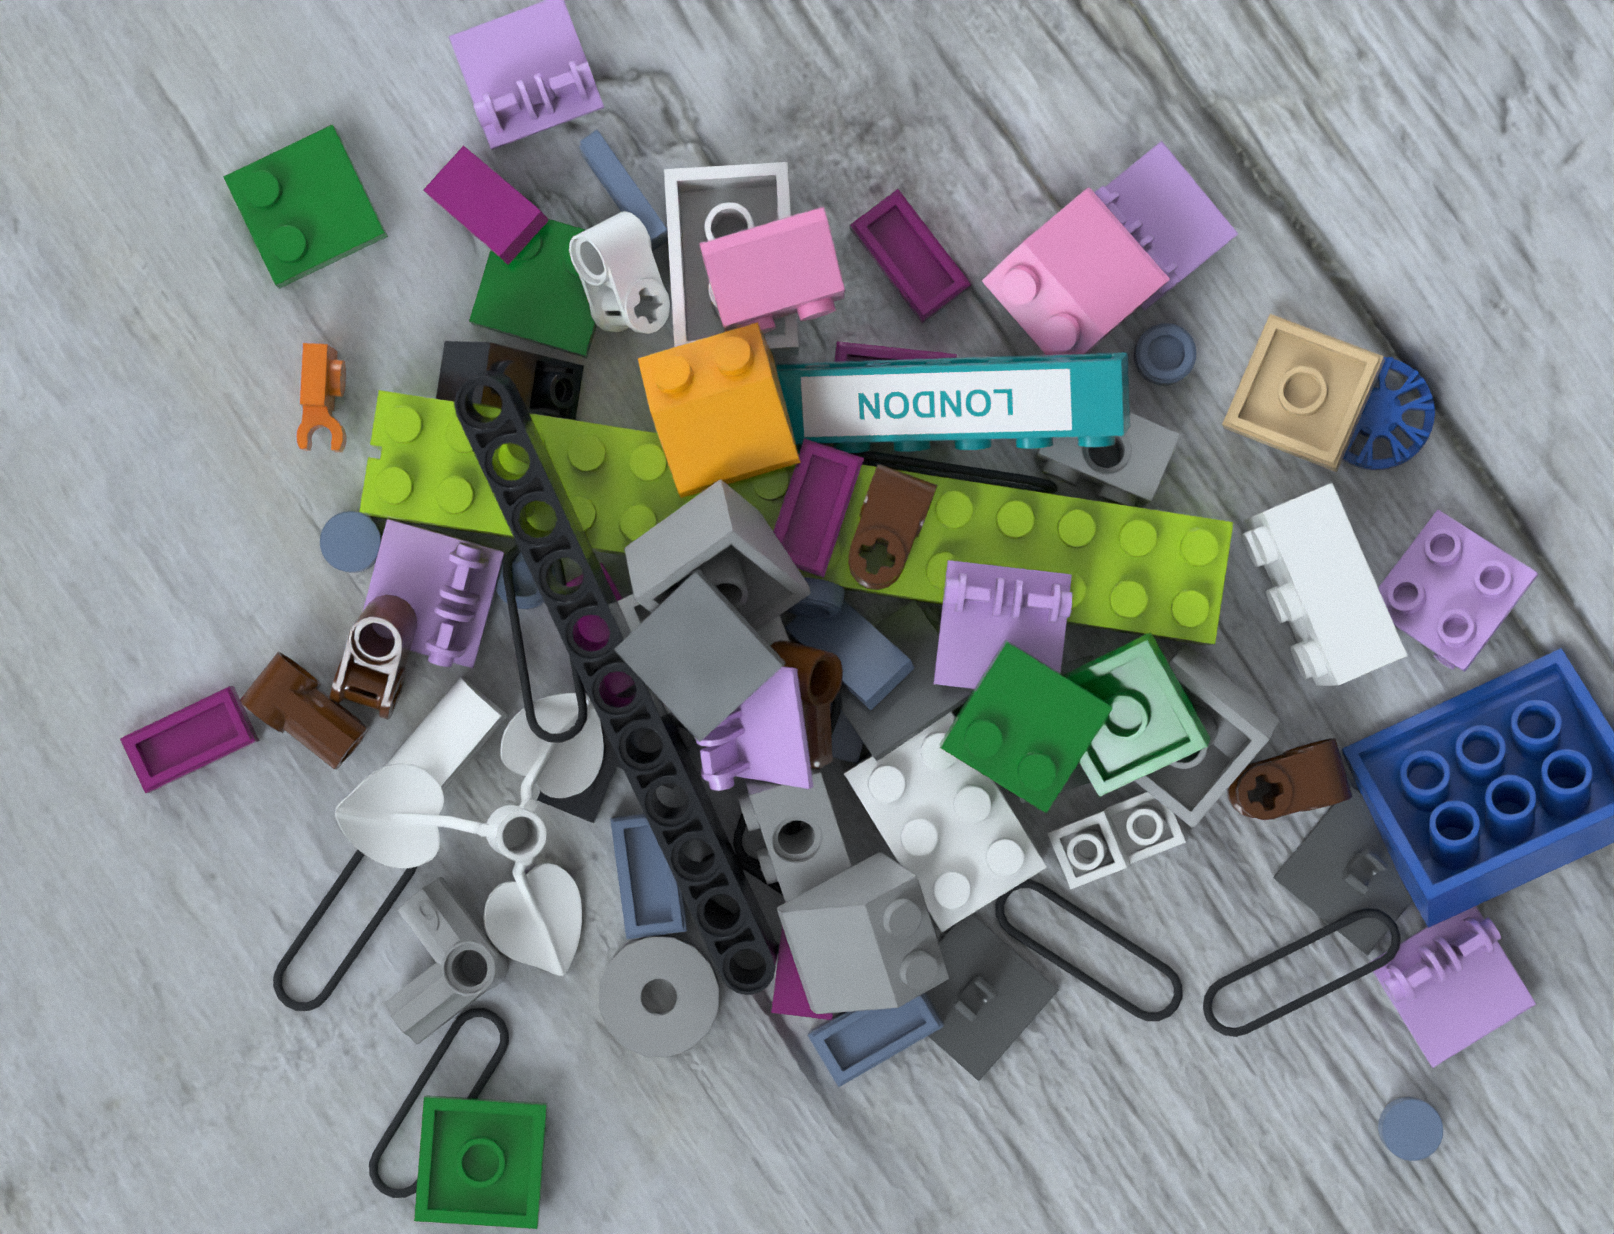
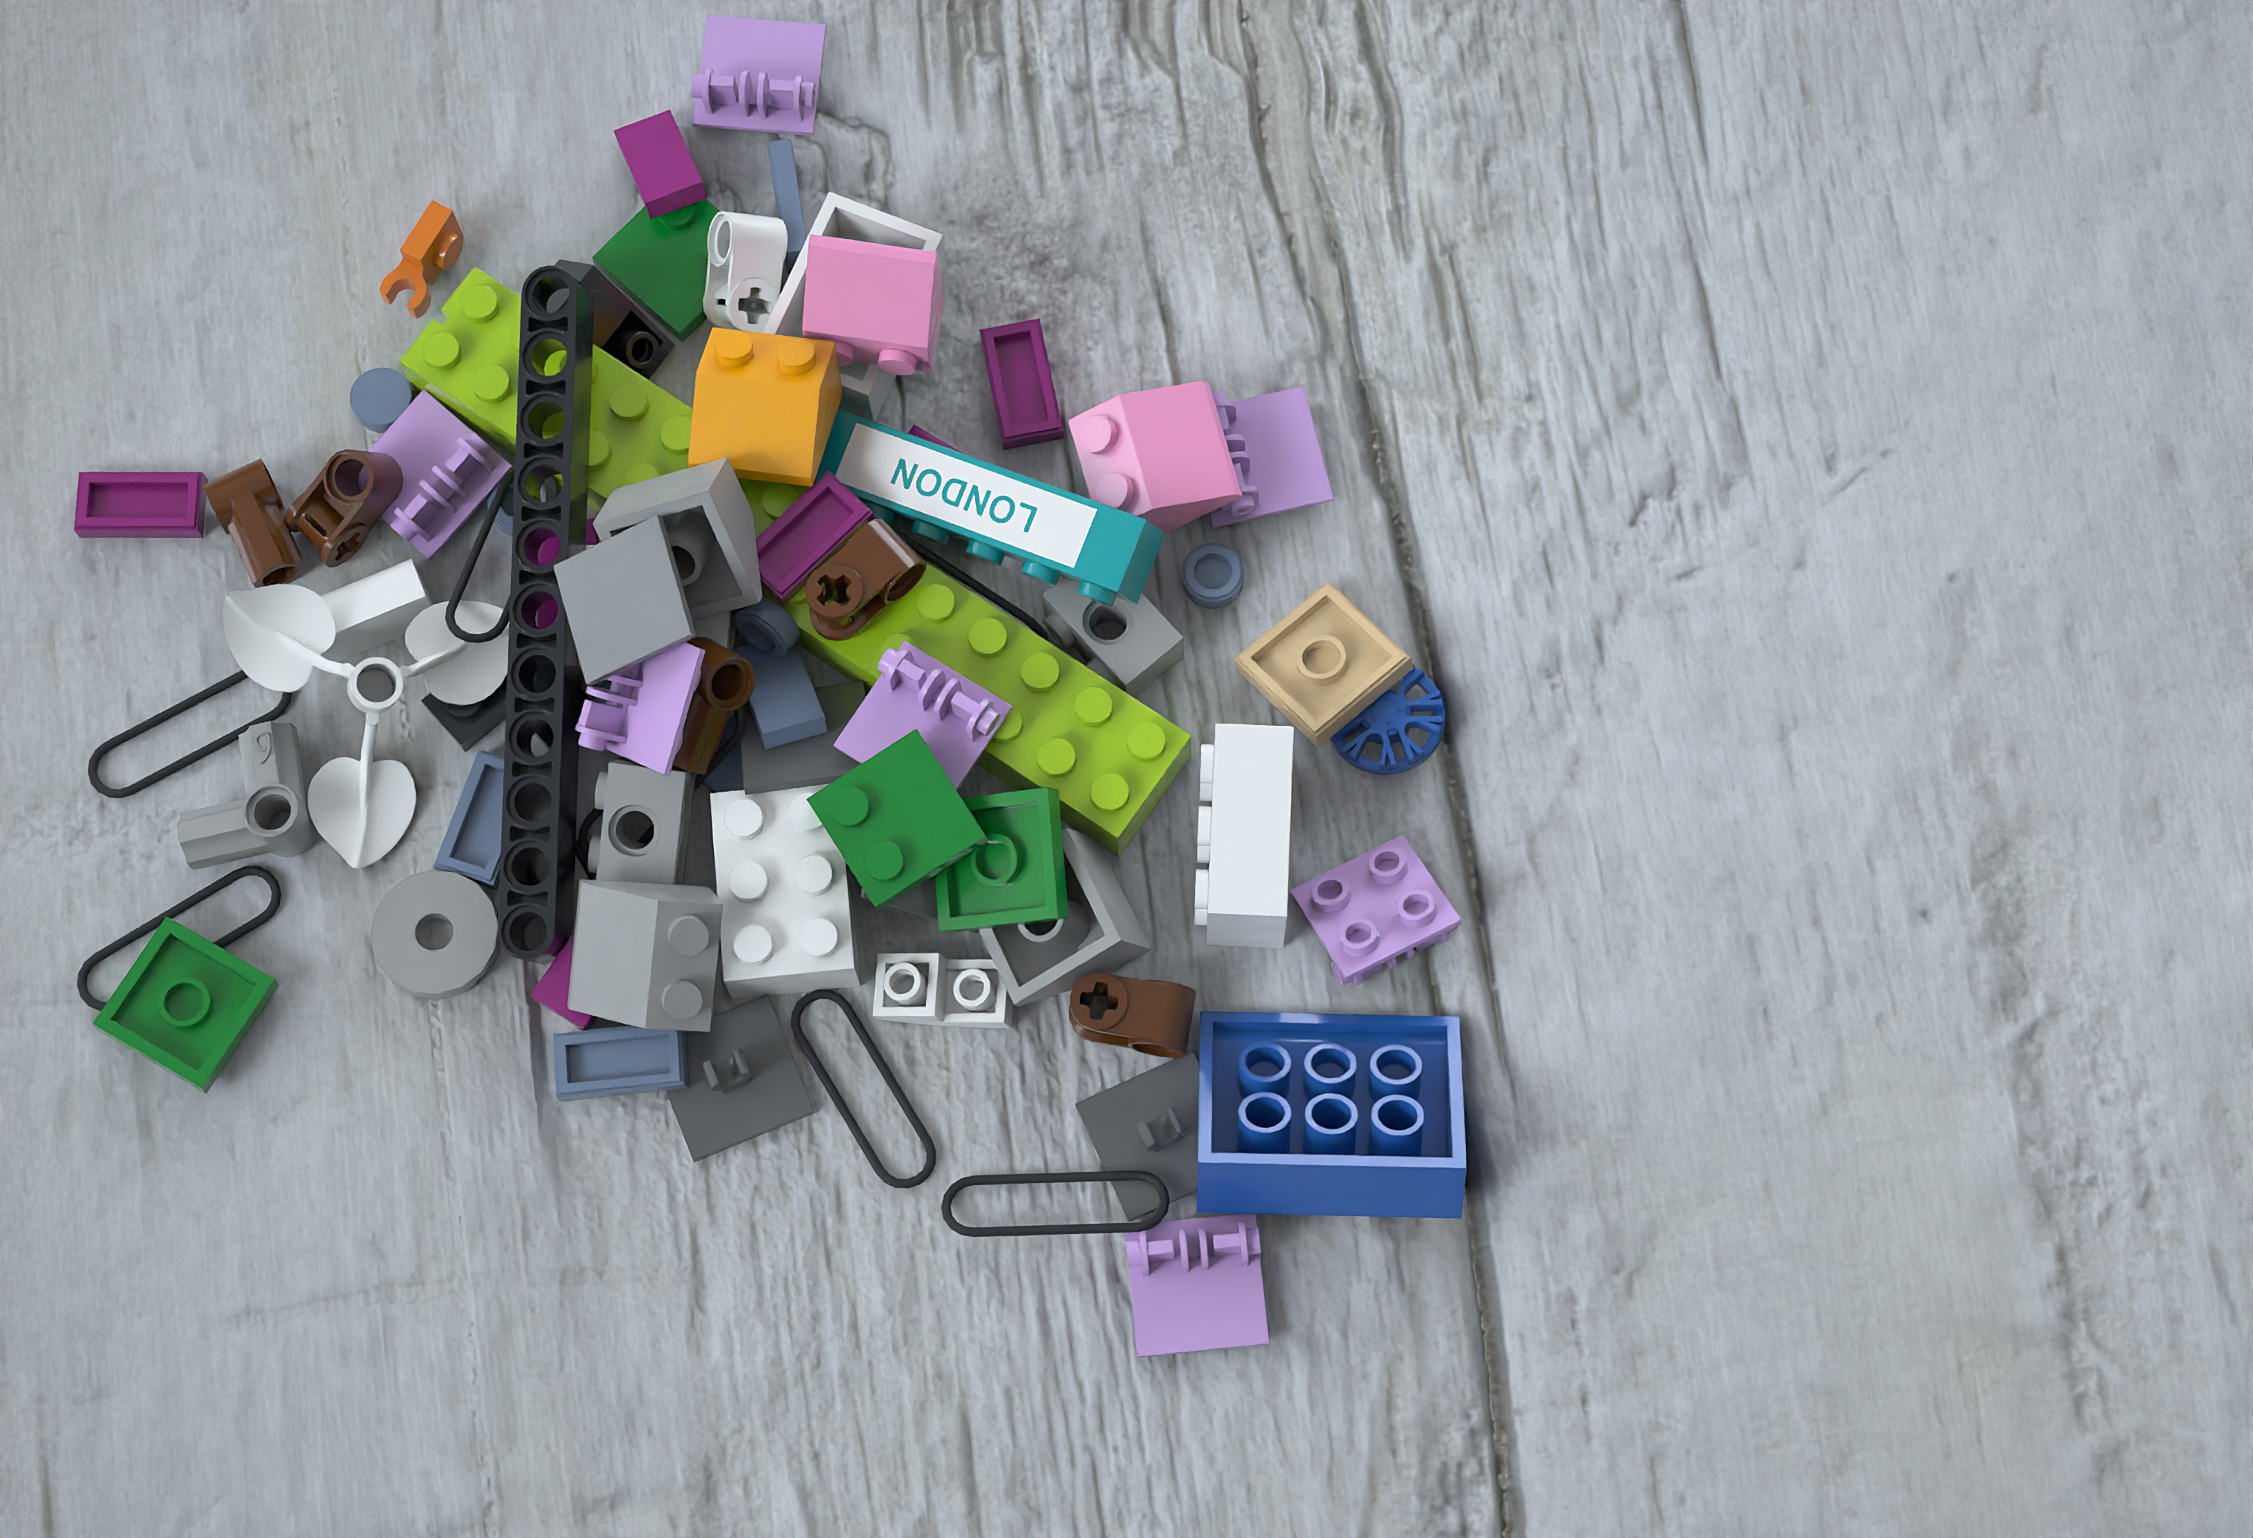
camera: 30 degrees right, 15 degrees down
(305, 206) = (503, 101): green plate -> none
(1410, 1128) = (1086, 1407): sand blue tile -> none

